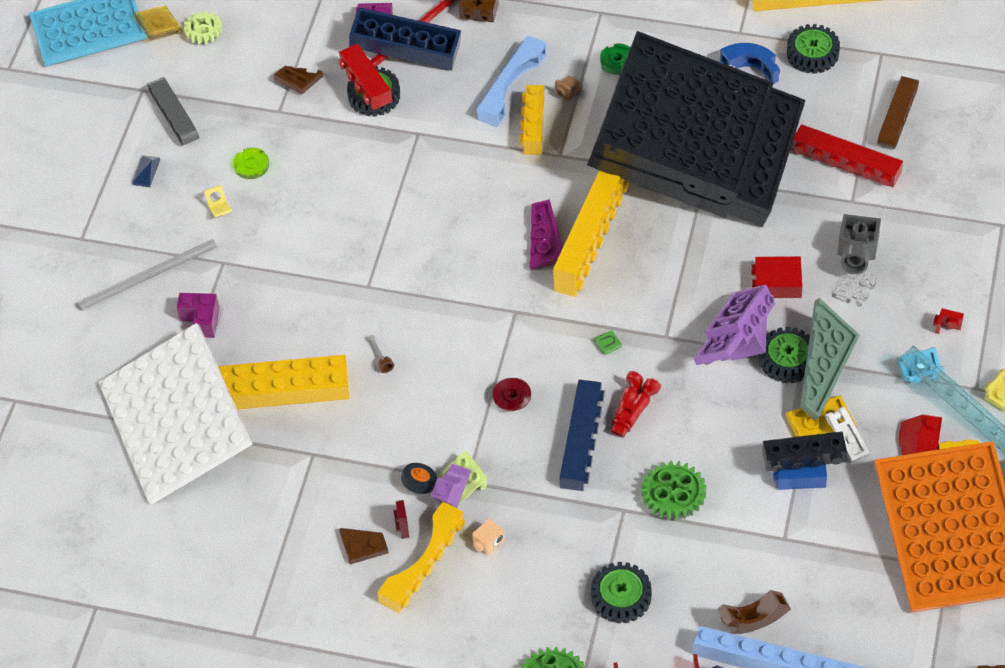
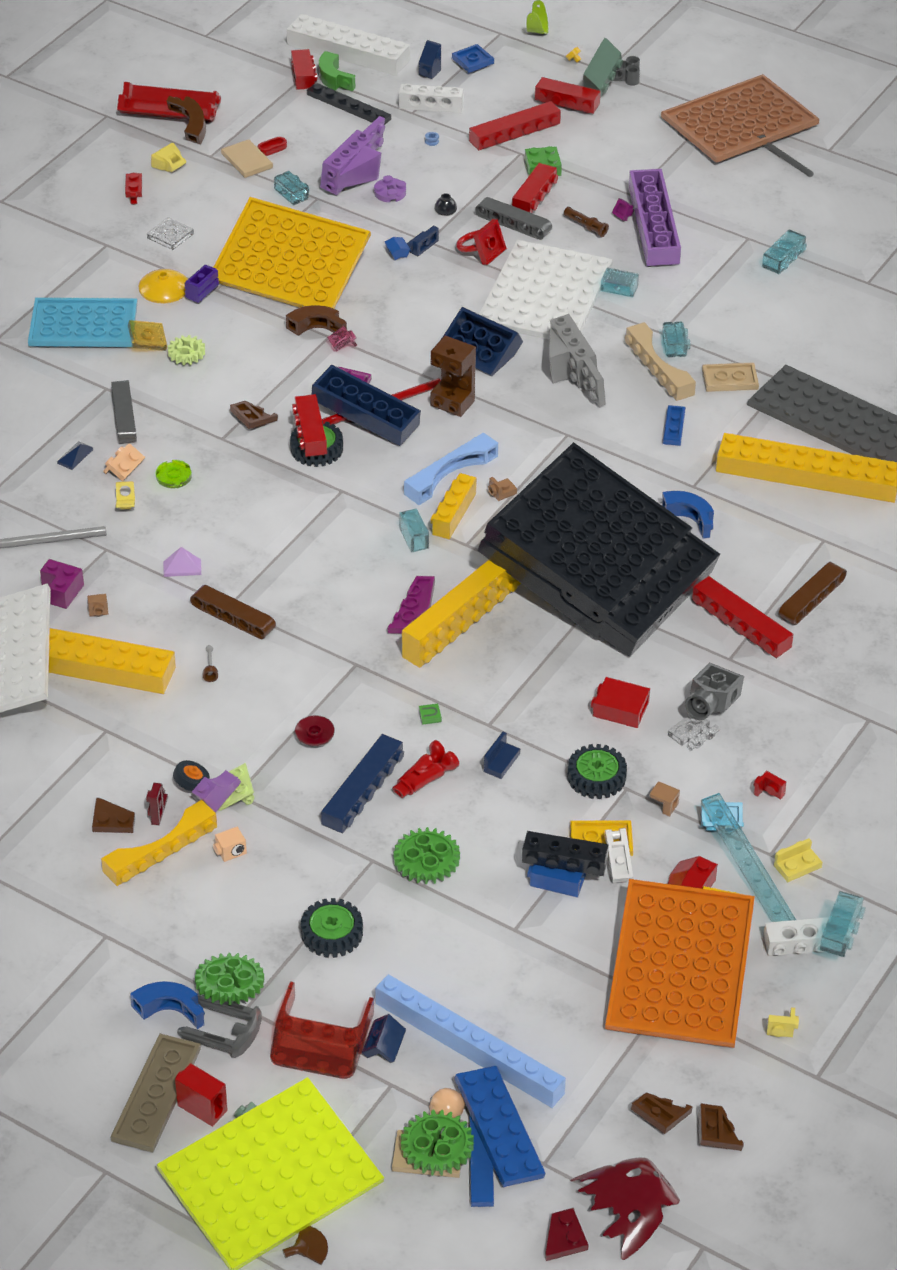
camera: 15 degrees right, 10 degrees down
(198, 165) = (125, 461): none -> light nougat bracket
(244, 324) = (97, 605): none -> medium nougat bracket
(304, 257) = (182, 564): none -> lavender slope
(377, 293) = (233, 611): none -> reddish brown beam
(508, 156) = (414, 530): none -> clear light blue piece
(693, 373) = (500, 757): none -> dark blue panel
(738, 327) = (557, 731): medium lavender wedge -> none
(755, 615) = (448, 985): reddish brown arch -> none
(813, 48) = (756, 516): wheel -> none
(827, 354) = (630, 780): sand green wing -> none
(862, 360) = (667, 795): none -> medium nougat panel

